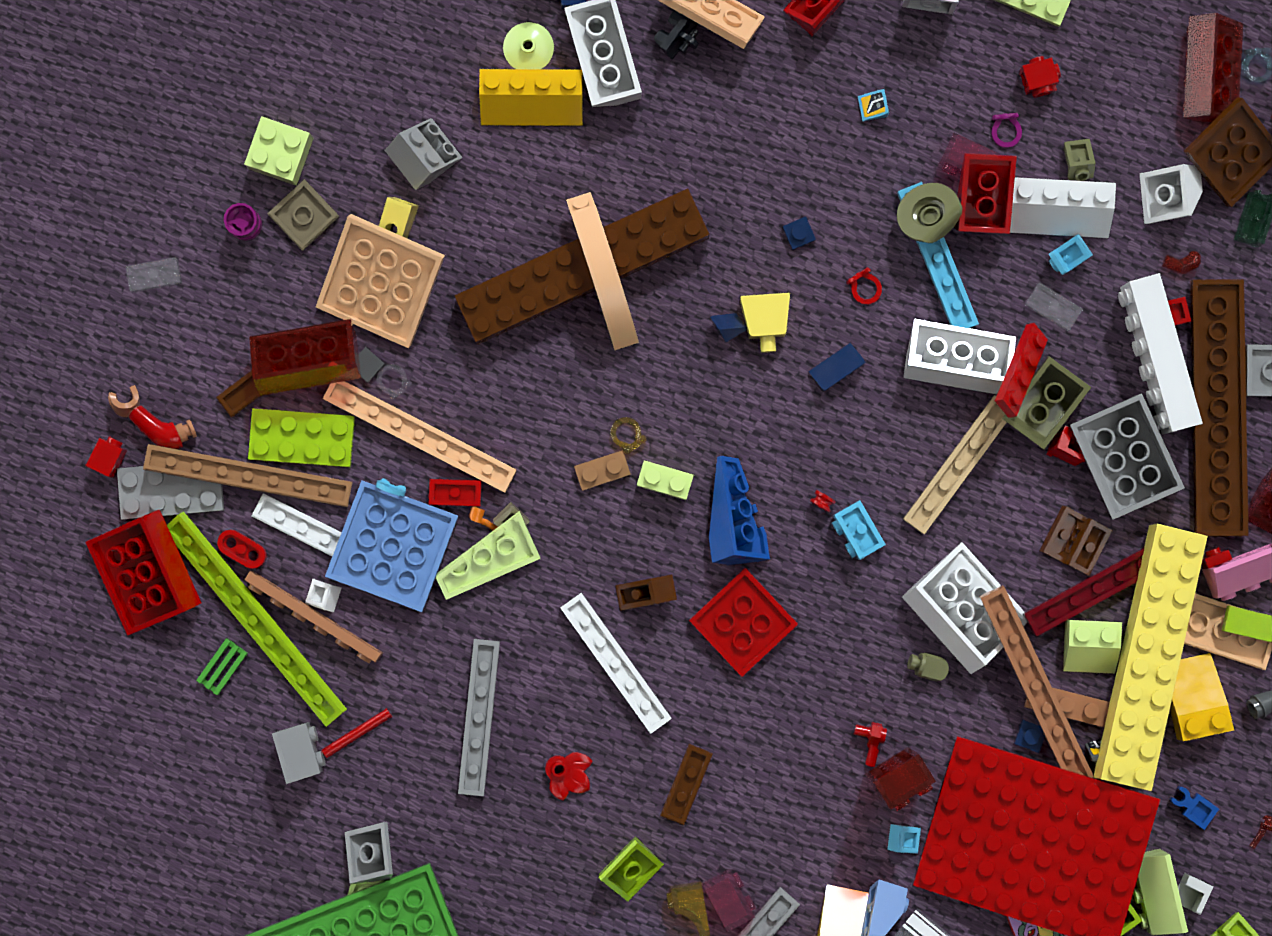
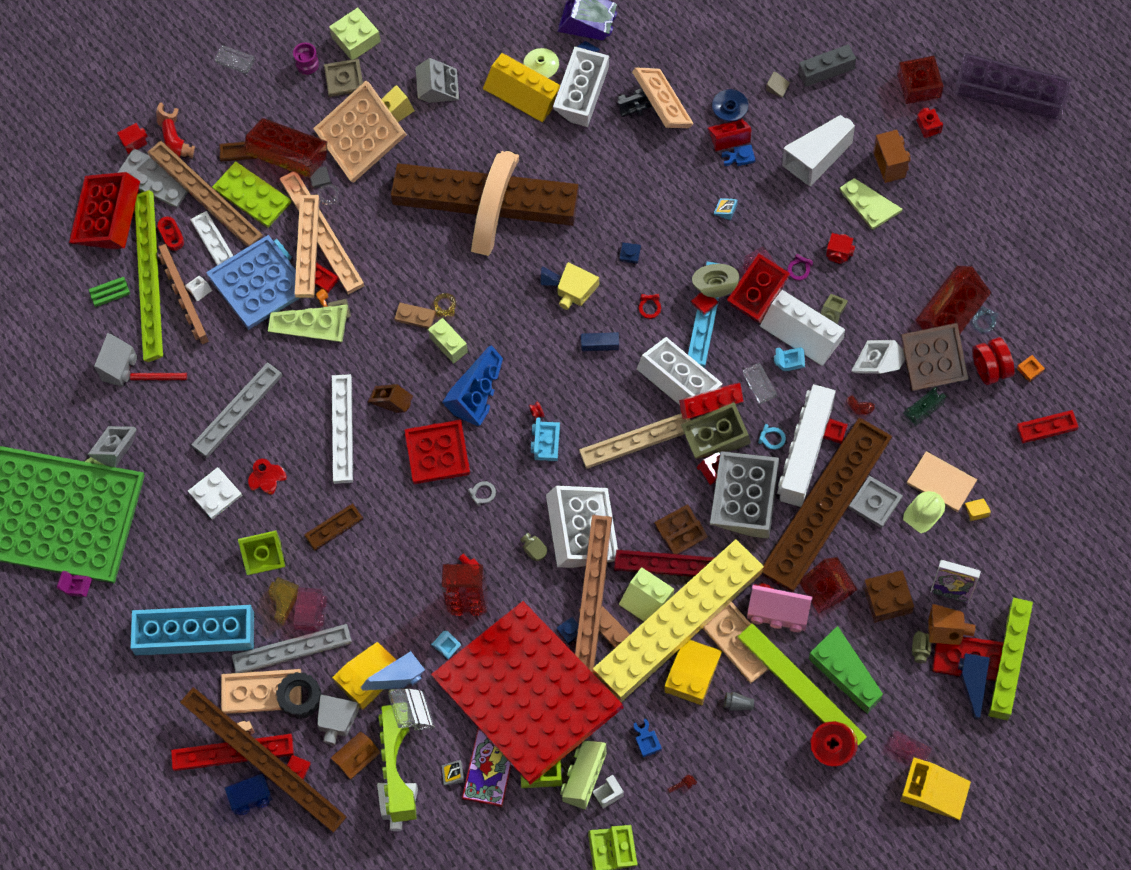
camera: 30 degrees right, 20 degrees down
(420, 468) = (307, 246): none -> light nougat plate
(524, 830) = (215, 493): none -> white plate
(815, 643) = (478, 502): none -> light grey piece
(848, 23) = (742, 156): none -> blue plate
(930, 251) = (704, 303): none -> red tile
(1095, 357) = (768, 430): none -> medium azure piece

